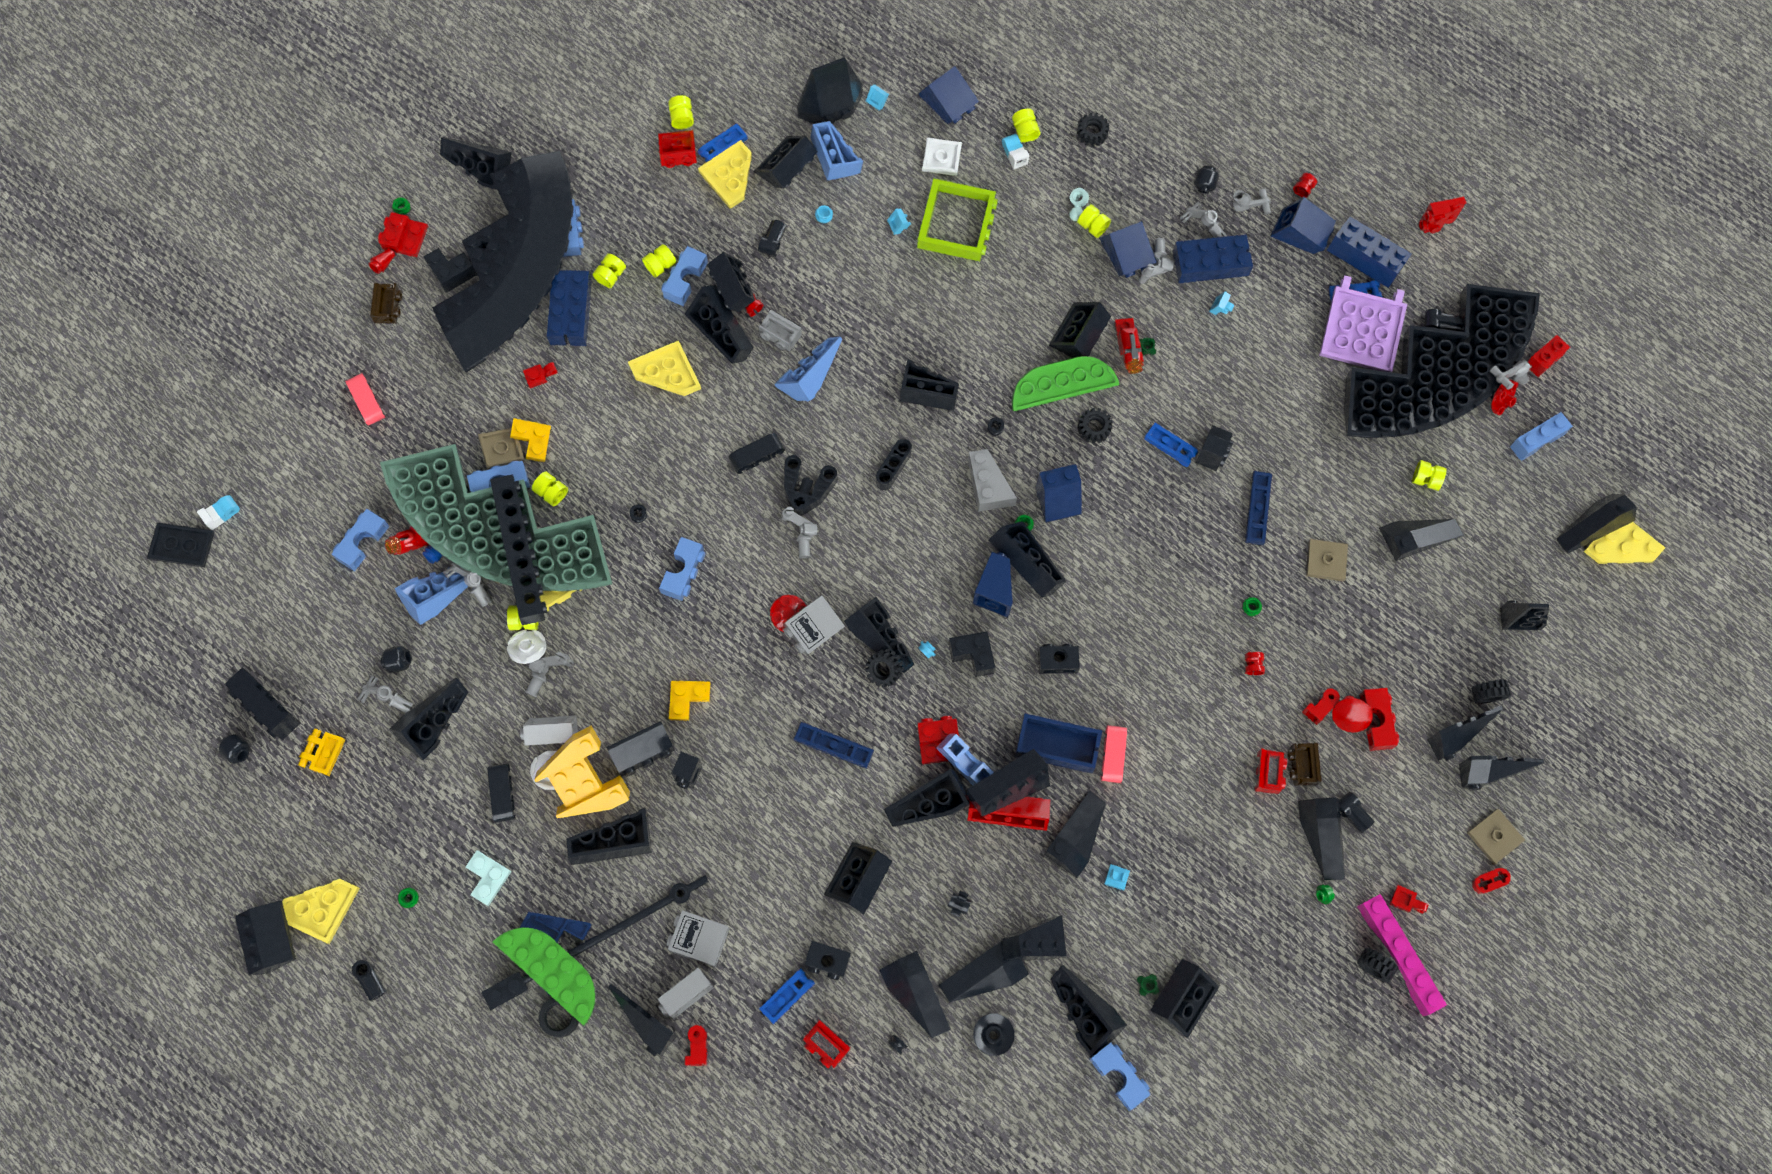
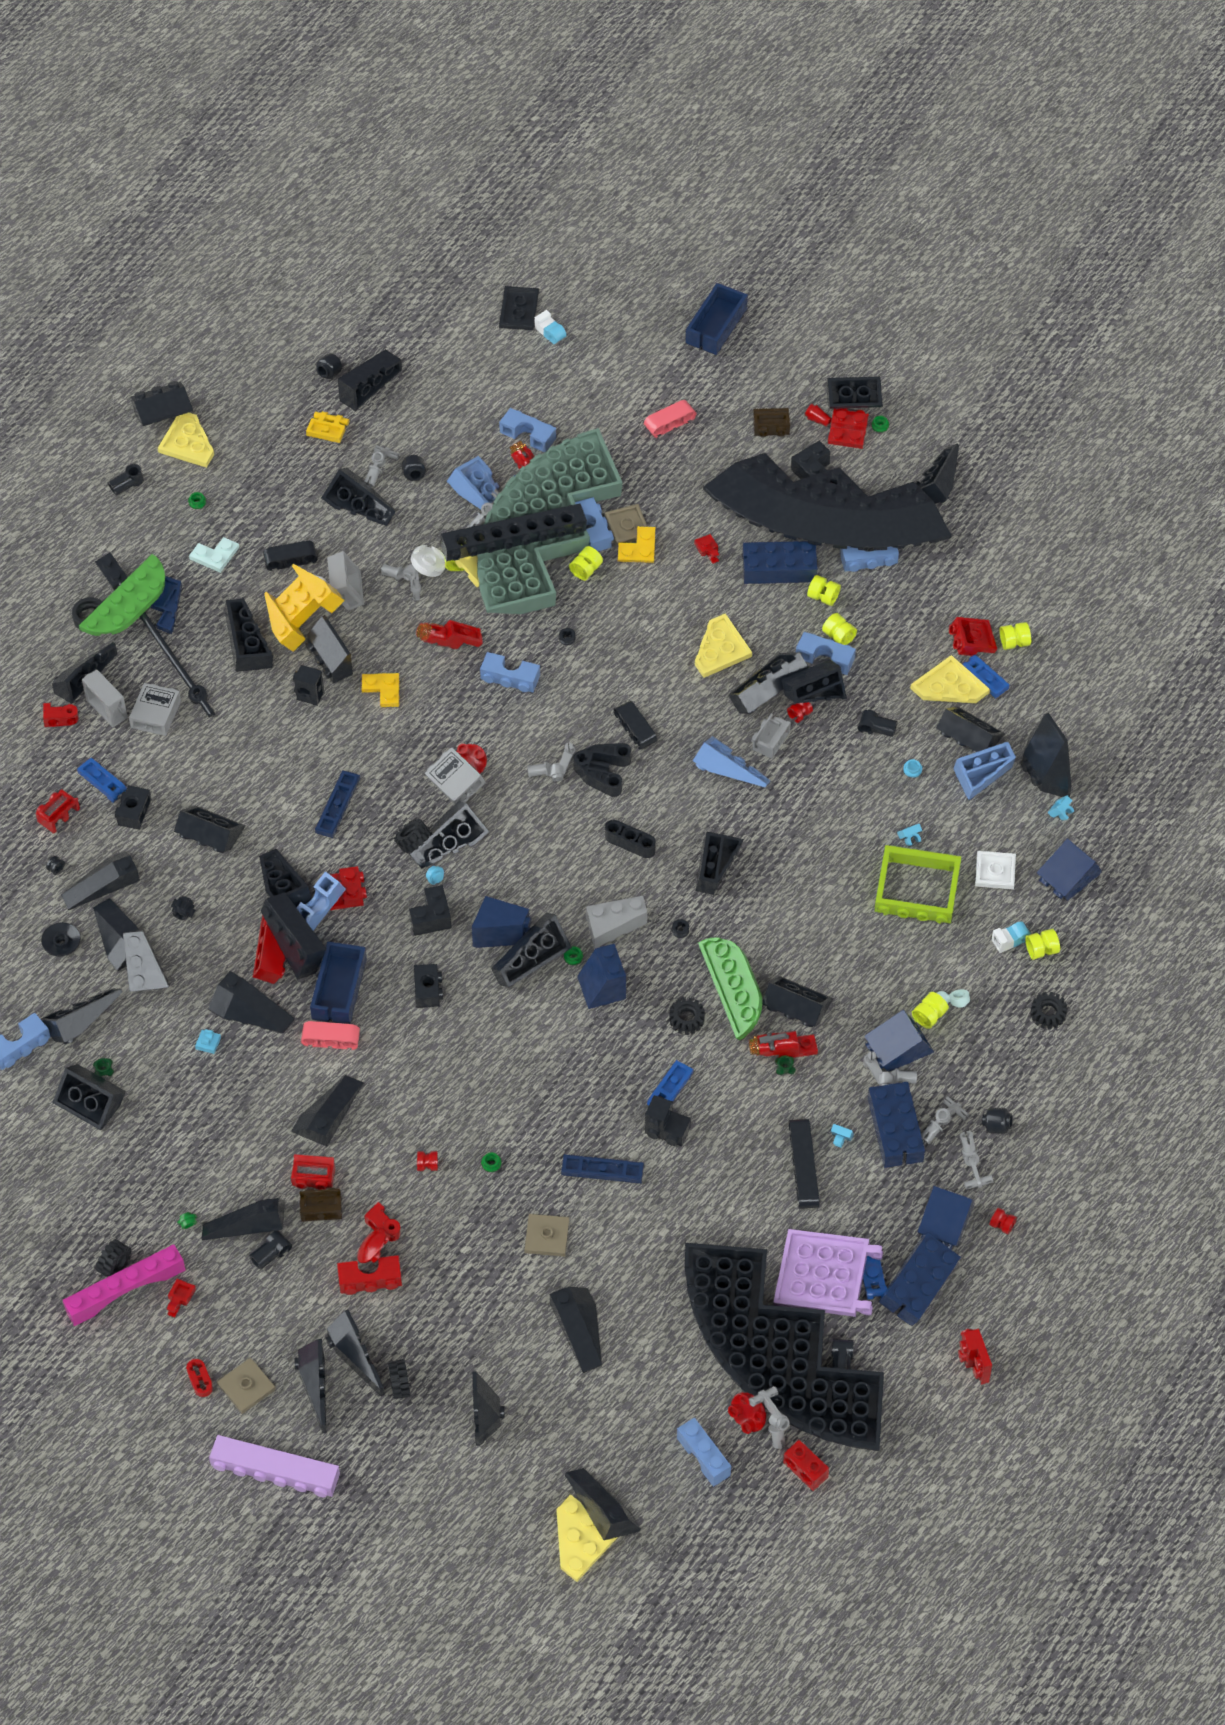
camera: 90 degrees right, 15 degrees down
(238, 343) = (716, 318): none -> dark blue piece
(365, 222) = (854, 392): none -> black slope
(631, 625) = (450, 635): none -> red plate
(1201, 759) = (326, 1114): none -> black wedge
(1250, 336) = (804, 1163): none -> black beam
(1429, 475) = (647, 1334): neon yellow wheel -> none
(1581, 808) = (274, 1466): none -> lavender brick

